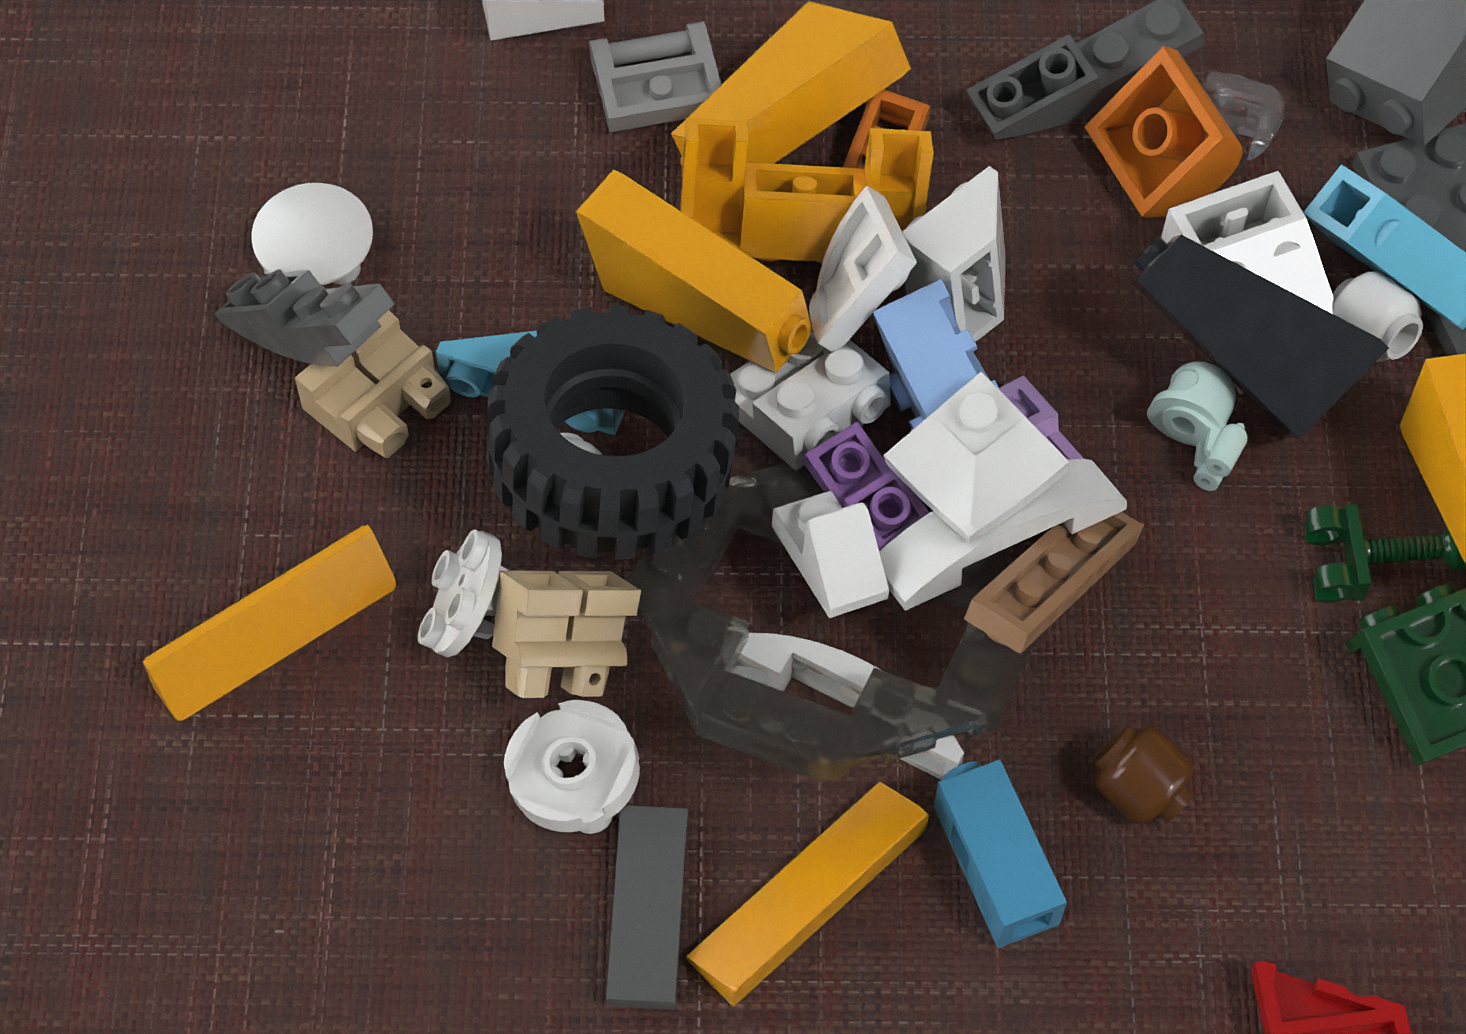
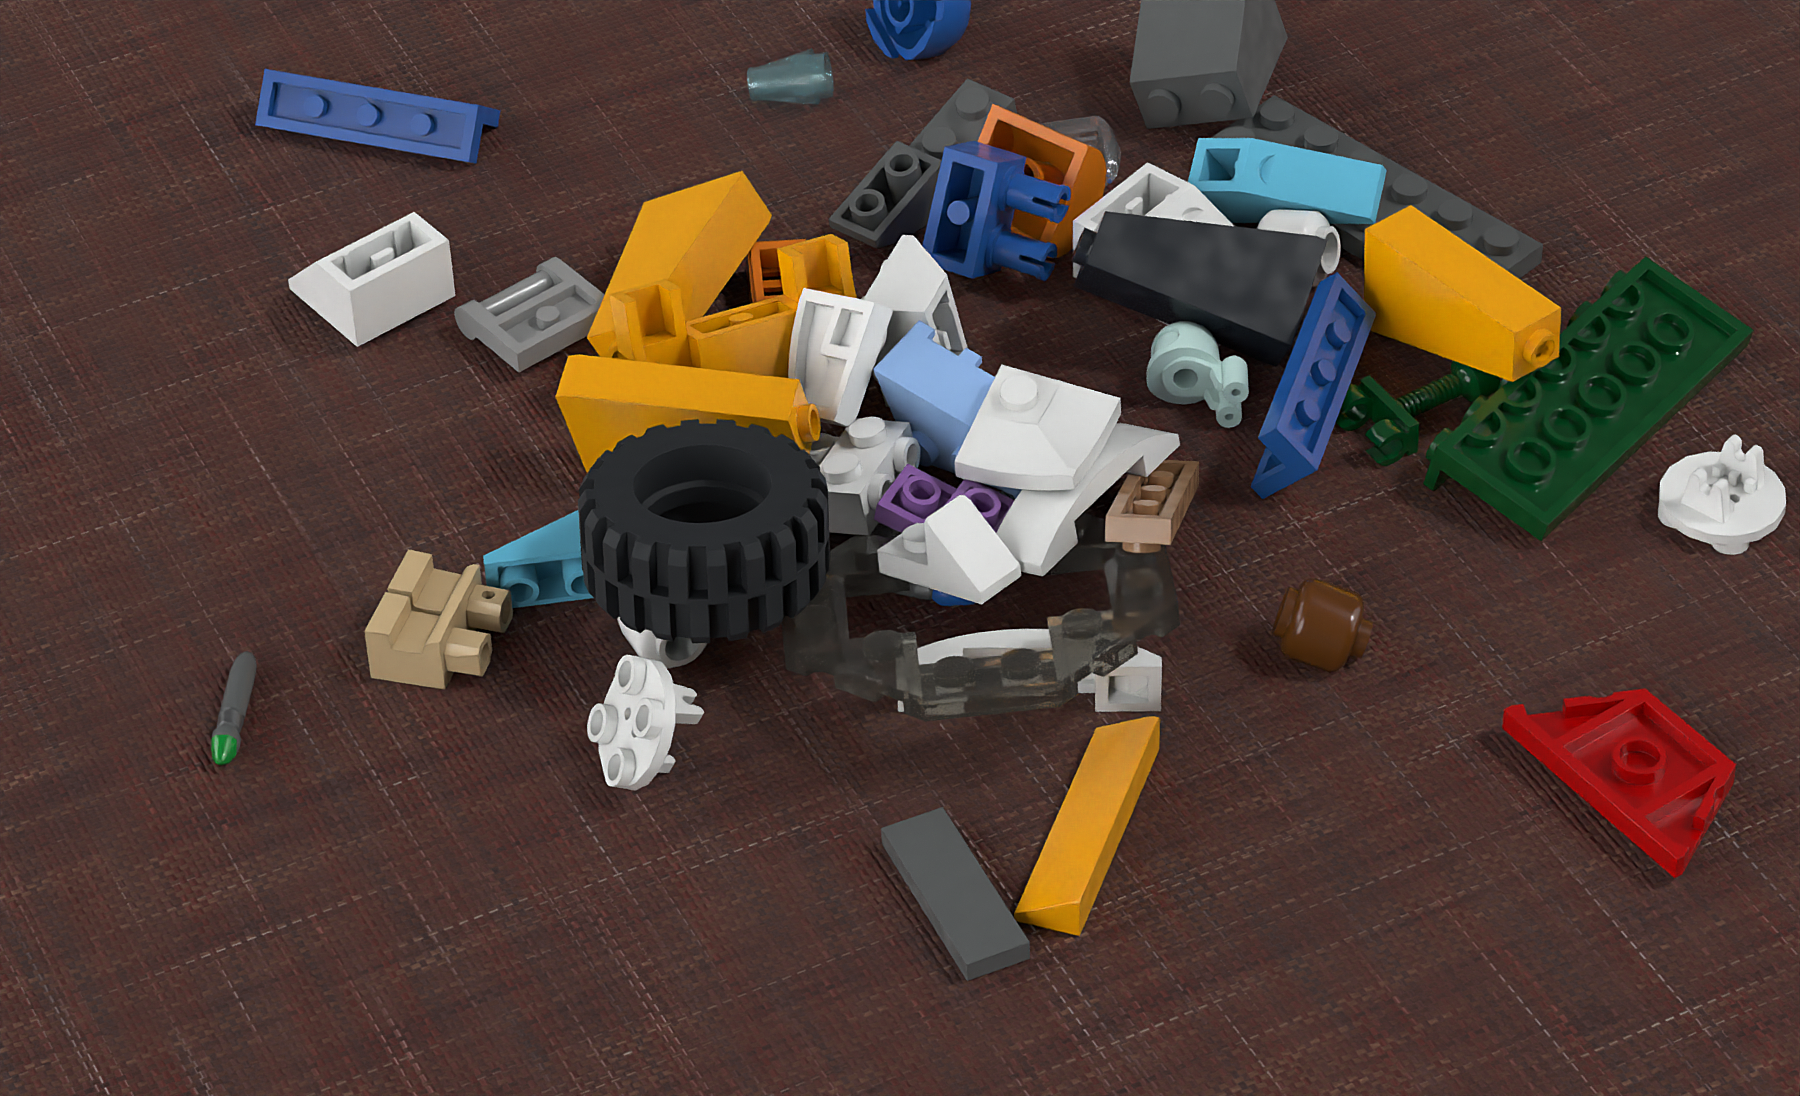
camera: 25 degrees left, 20 degrees down
(142, 420) = (233, 710): none -> dark grey piece
(270, 623) = (461, 830): light orange slope -> none
(301, 317) = (342, 583): dark grey slope -> none
(313, 230) = (291, 545): white dish -> none
(561, 622) = (743, 698): tan hips -> none
(579, 801) = (822, 846): white plate -> none
(998, 852) = (1237, 726): dark azure brick -> none
(1089, 151) = (975, 211): none -> blue brick
(1294, 495) = (1313, 385): none -> blue fence

